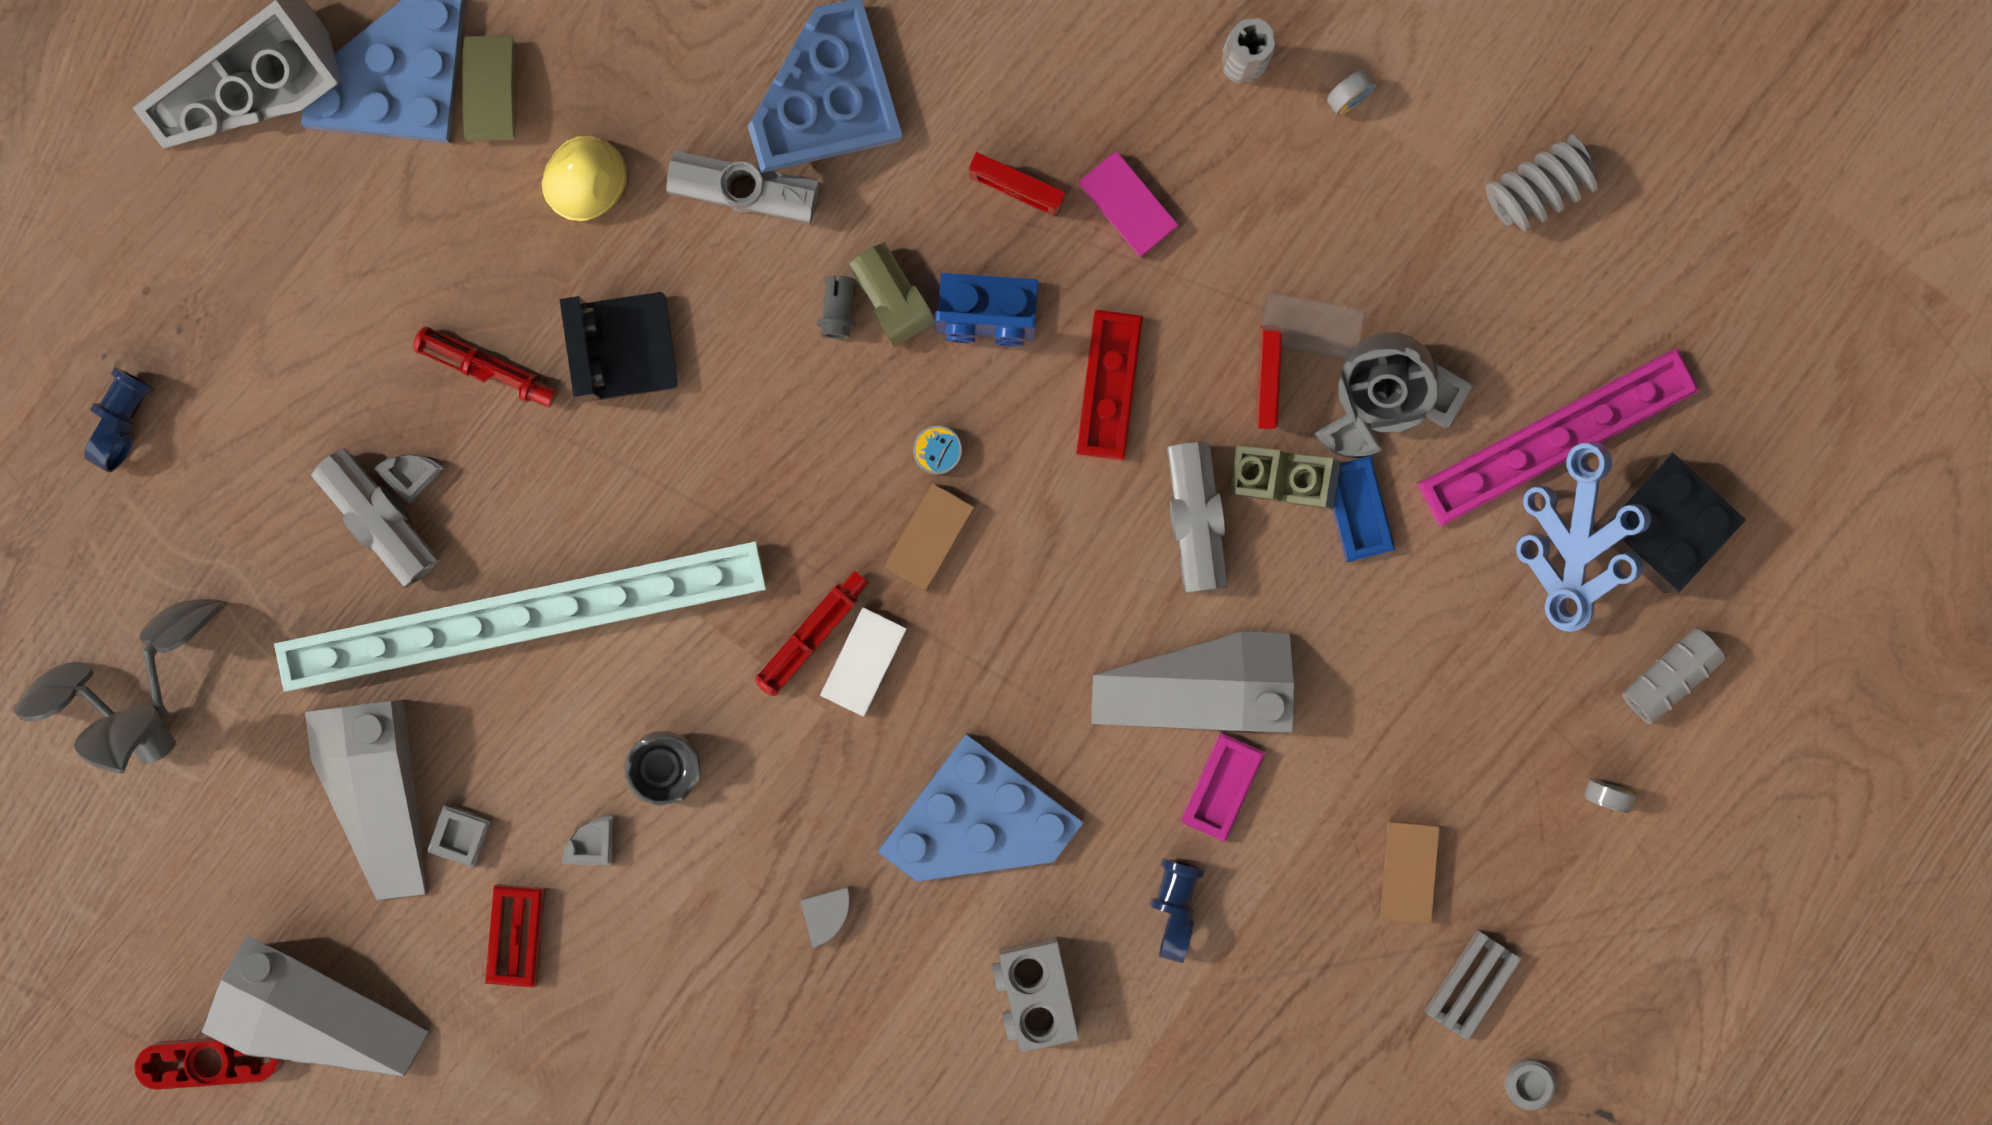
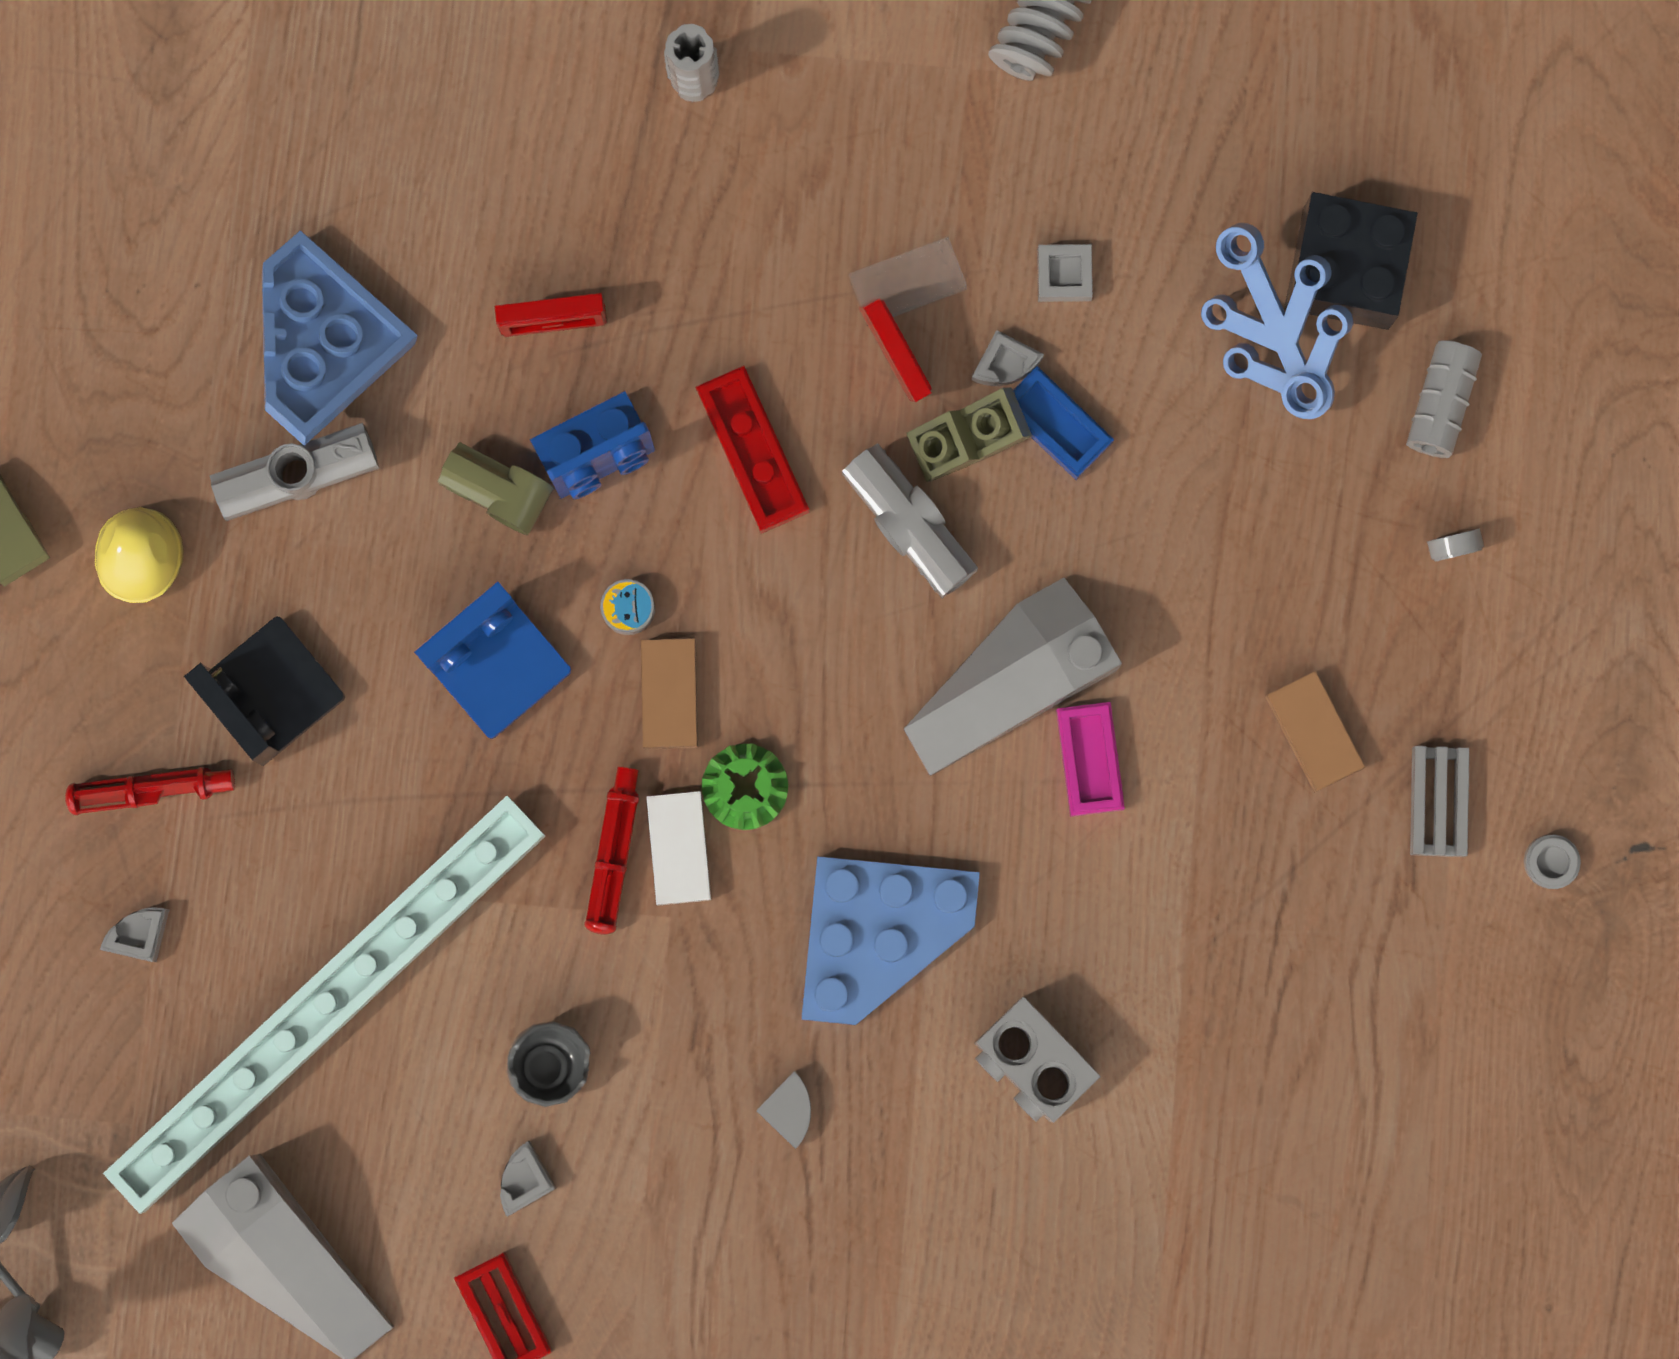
camera: 25 degrees left, 5 degrees down
(375, 517) = (129, 994): light grey piece -> none
(460, 836) = (392, 1251): light grey tile -> none
(808, 431) = (494, 661): none -> blue bracket
(837, 308) = (452, 530): dark grey pin -> none
(922, 634) = (746, 812): none -> bright green gear
(1128, 204) = (667, 272): dark pink tile -> none
(1175, 898) = (1109, 889): dark blue connector -> none
(1351, 92) = (811, 45): light grey tile -> none
(1388, 382) = (1010, 286): dark grey cylinder -> none
(1551, 438) = (1192, 253): dark pink tile -> none

